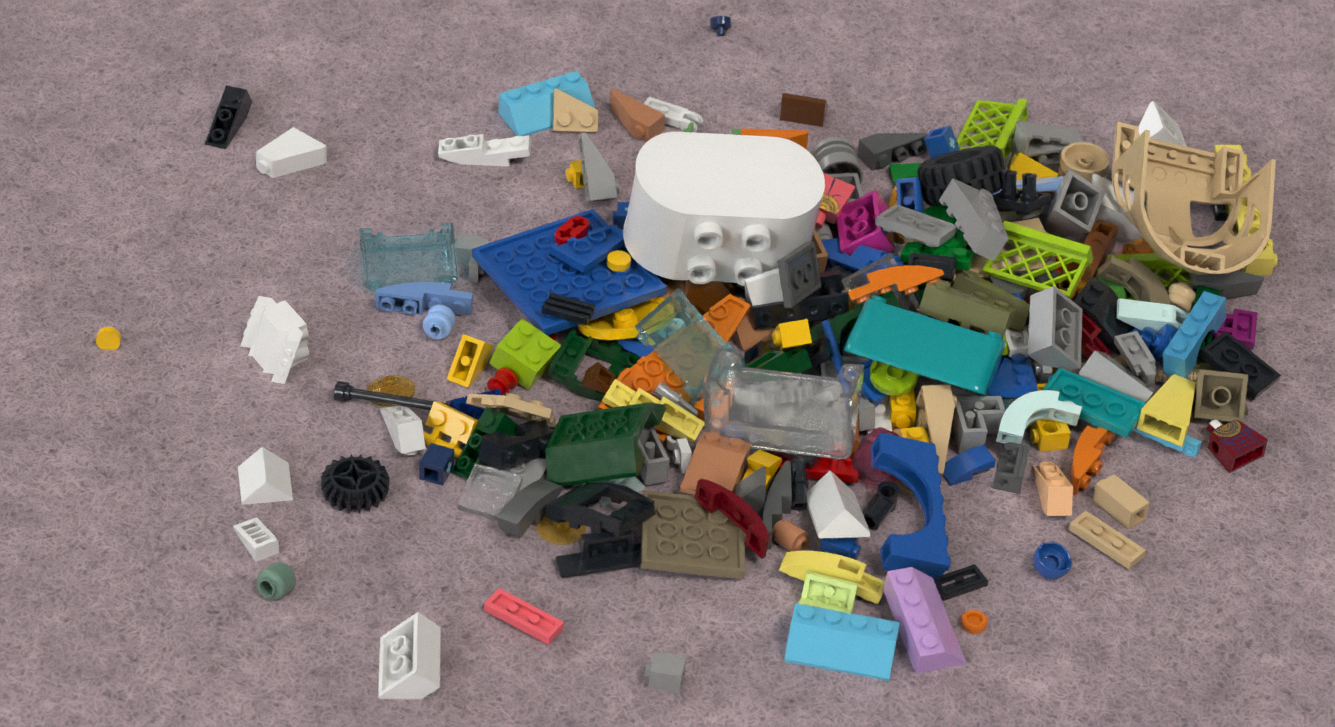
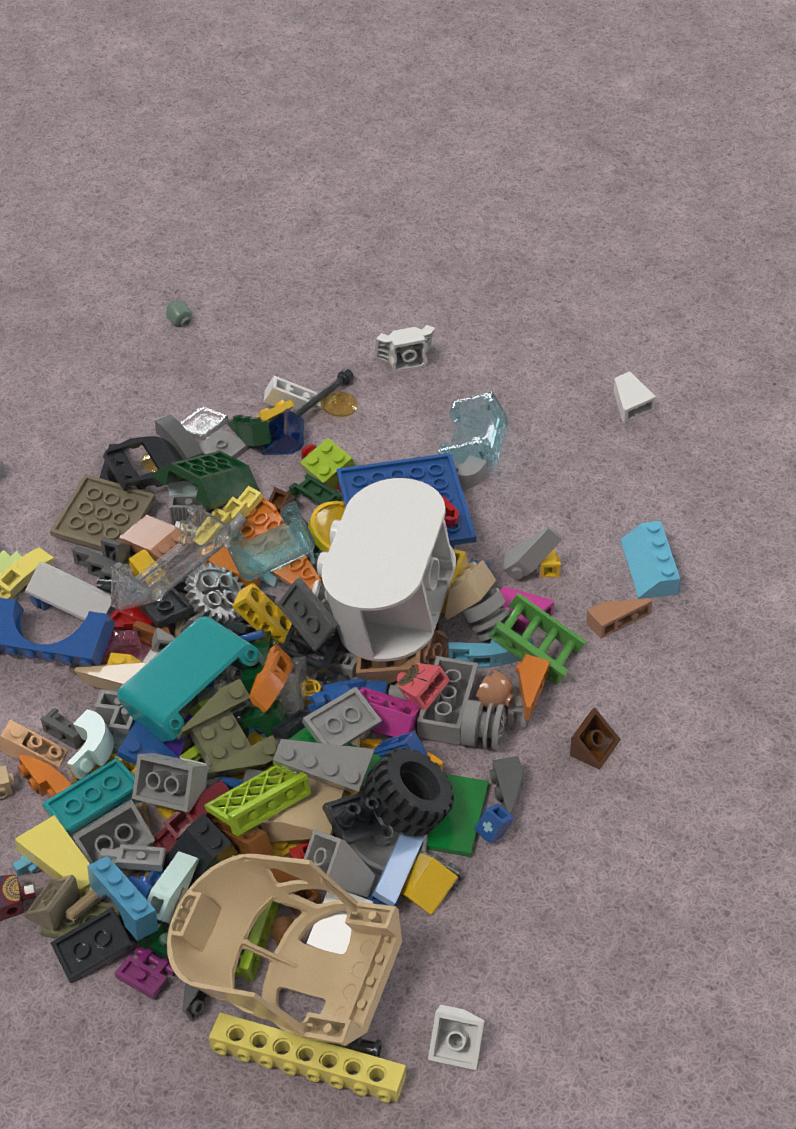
camera: 115 degrees right, 5 degrees up
(108, 338) = (451, 279): yellow tile -> none
(229, 116) = (696, 374): black slope -> none
(264, 478) = (276, 329): white slope -> none
(267, 542) = (221, 315): white slope -> none
(355, 483) = (248, 364): black gear -> none
(410, 659) = (74, 359): white slope -> none
(417, 296) = (426, 435): medium blue slope -> none
(436, 464) = (245, 404): dark blue brick -> none
(439, 322) = (393, 435): light blue piece -> none
(469, 360) = (350, 443): yellow slope -> none
(477, 151) = (600, 506): white slope -> none
(508, 451) = (227, 426): black arch -> none
(515, 407) = (260, 440): tan wing -> none
(524, 616) = (83, 417): coral plate -> none
(568, 309) = (347, 482): black tile -> none
(573, 114) = (627, 571): tan wing -> none
(675, 115) = (616, 642): white hinge -> none
(716, 497) = (92, 537): dark red slope -> none
(720, 24) = (747, 717): dark blue tile -> none
(790, 536) = (76, 568): nougat brick -> none
(792, 361) = (227, 586): dark green slope -> none
(881, 504) = (66, 624): black piece -> none
(967, 463) = (84, 699): blue slope -> none
(1005, 132) = (503, 895): lime fence -> none
(1043, 141) = (464, 912): light grey wedge -> none
(1084, 160) = (418, 929): tan wheel -> none

